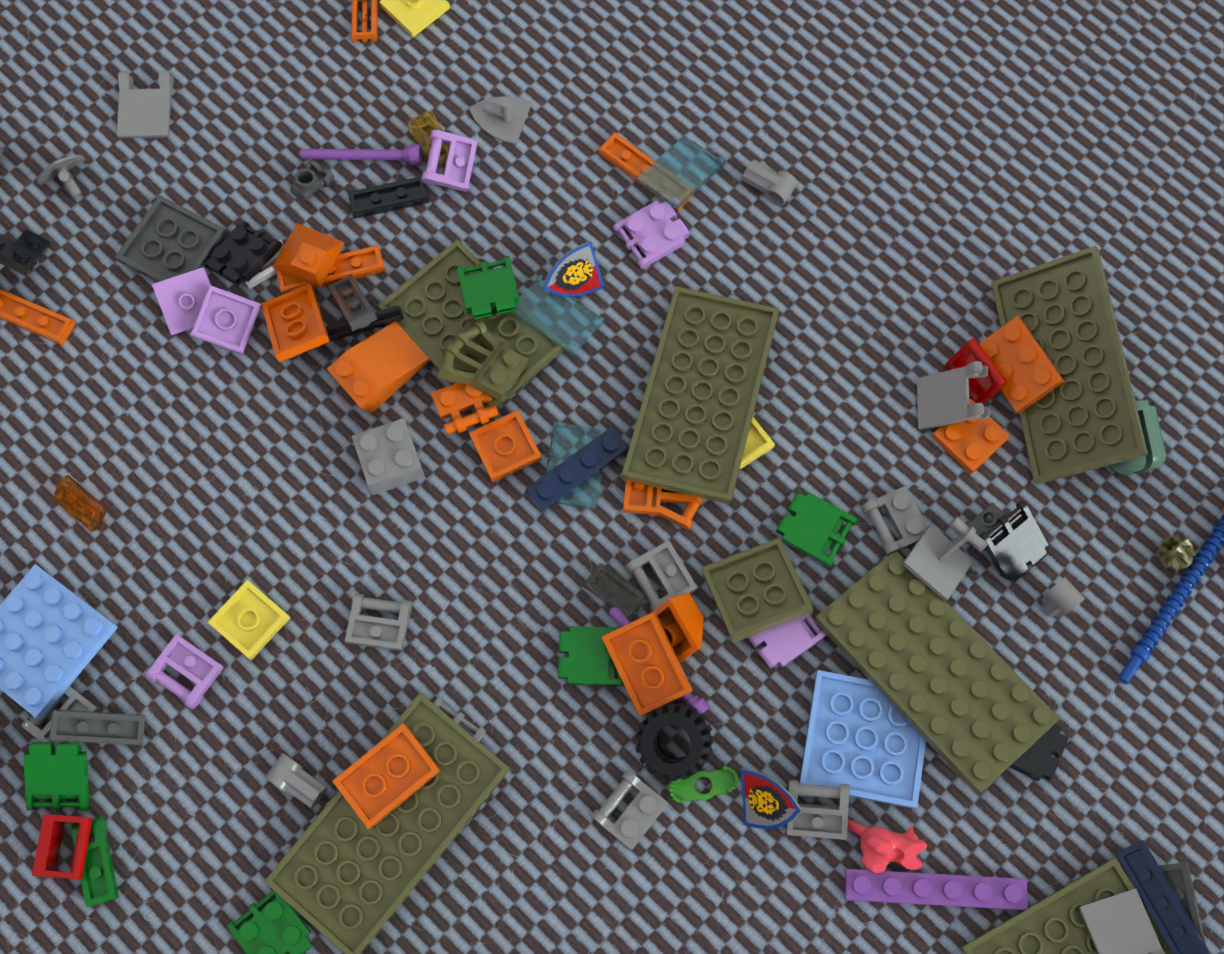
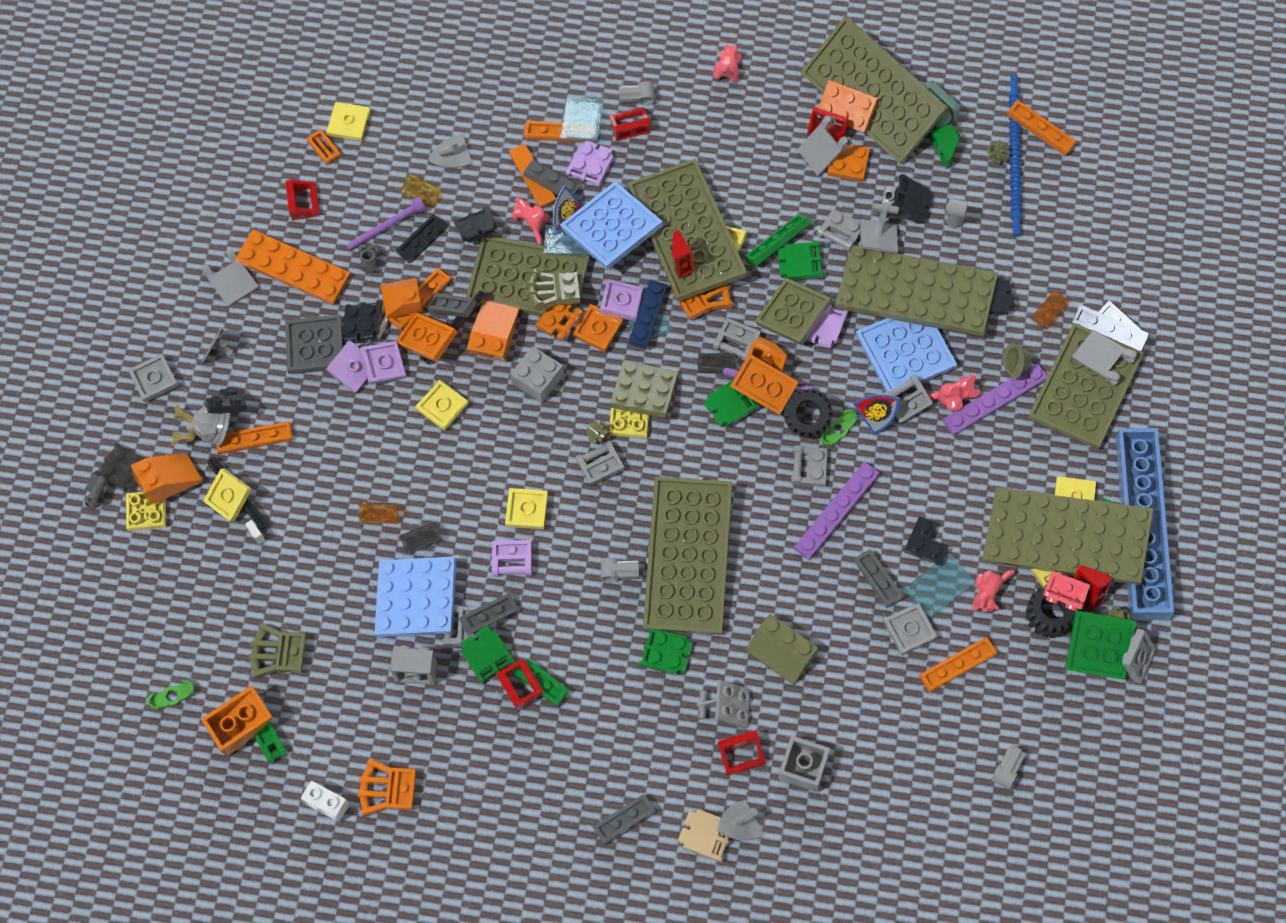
camera: 30 degrees left, 5 degrees down
(102, 569) = (420, 538): none -> clear smoke plate
(219, 137) = (293, 267): none -> orange plate
(253, 418) = (441, 405): none -> light yellow plate
(280, 56) = (301, 213): none -> red tile
(386, 776) = (670, 527): orange plate -> none
(404, 581) = (598, 432): none -> olive gear
(457, 221) = (475, 225): none -> black plate
(458, 162) = (449, 193): lavender plate -> none
(458, 588) = (628, 424): none -> light yellow tile
(489, 288) = (525, 248): green plate -> none
(499, 564) = (644, 389): none -> plate
(532, 256) = (535, 217): none -> coral animal
(557, 429) = (621, 300): none -> lavender plate
(571, 204) = (522, 158): none -> orange tile
(587, 221) = (548, 178): none -> dark grey plate
(613, 328) = (611, 225): none -> light blue plate
(620, 896) = (836, 511): none -> medium lavender plate
(659, 424) = (681, 256): none -> red tile
(733, 222) = (632, 128): none -> red tile
(806, 480) = (777, 239): none -> green tile
(908, 215) = (728, 63): none -> coral animal
(999, 859) = (1016, 360): none -> olive piece
(1096, 815) = (1050, 310): none -> clear orange plate
(1113, 495) = (945, 142): none -> green slope

